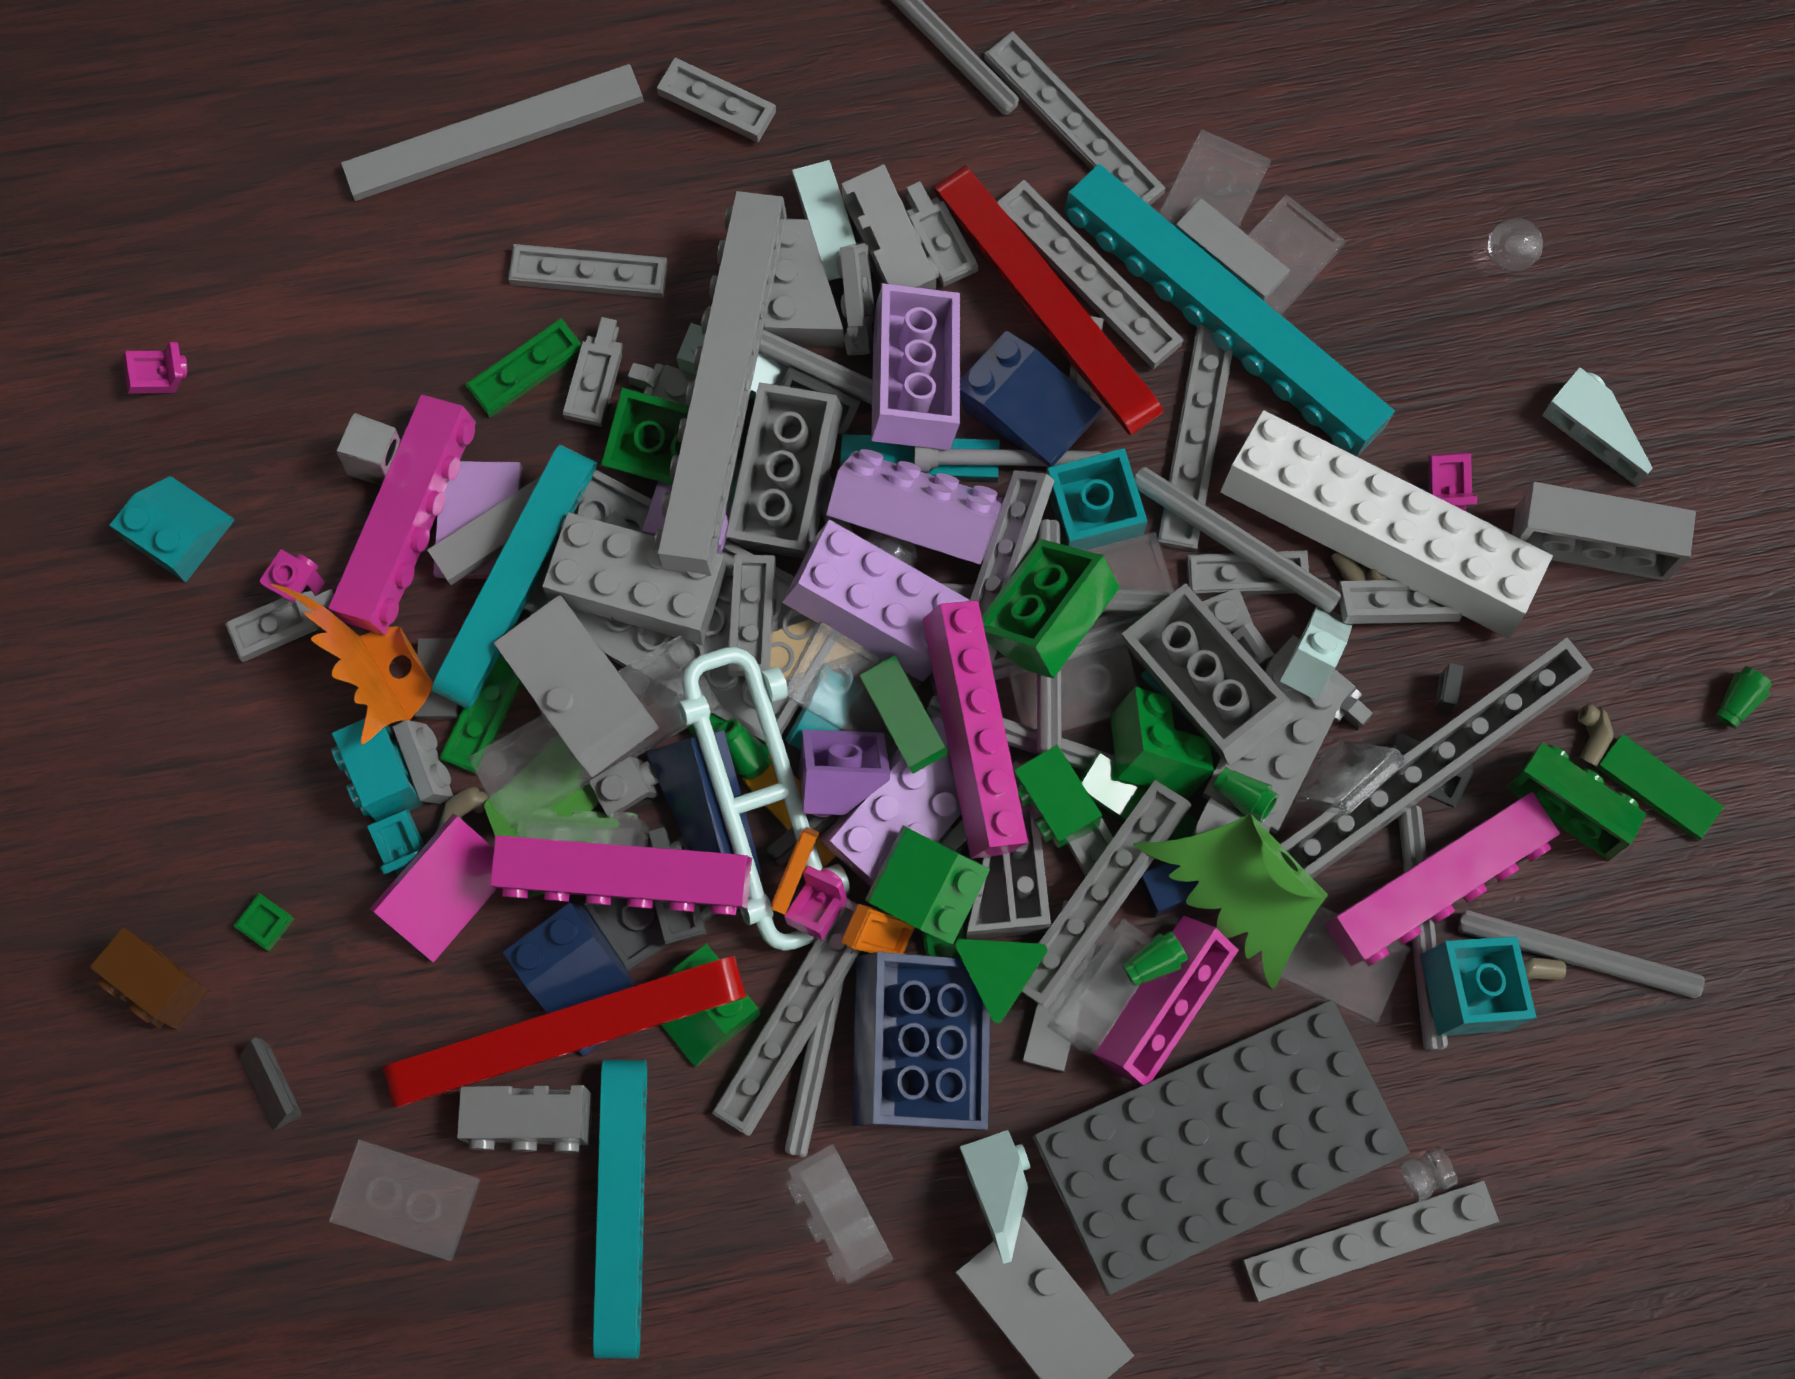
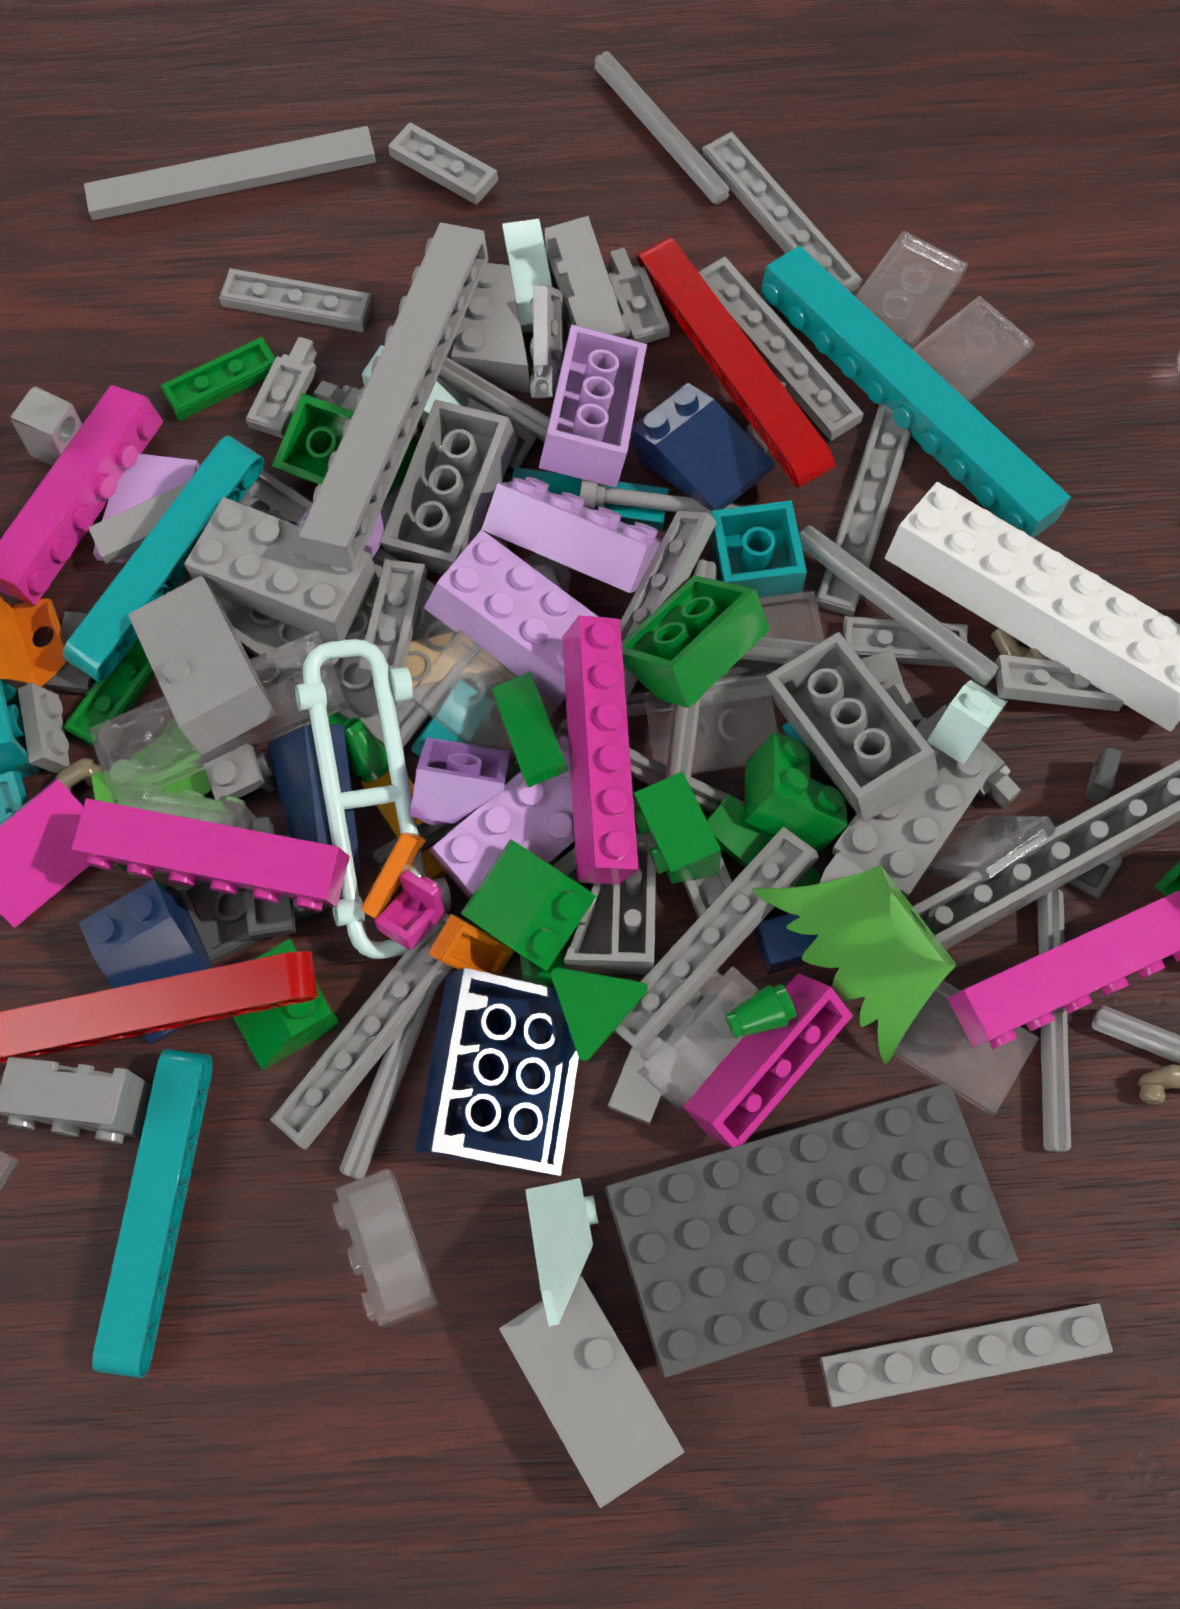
camera: 10 degrees right, 5 degrees down
(1233, 249) = (923, 335): light grey tile -> none
(1246, 793) = (879, 849): green cone -> none
(1428, 1173) = (1038, 1287): clear wheel -> none
(1451, 478) = (1123, 568): dark pink bracket -> none
(1477, 986) = (1111, 1086): teal brick -> none

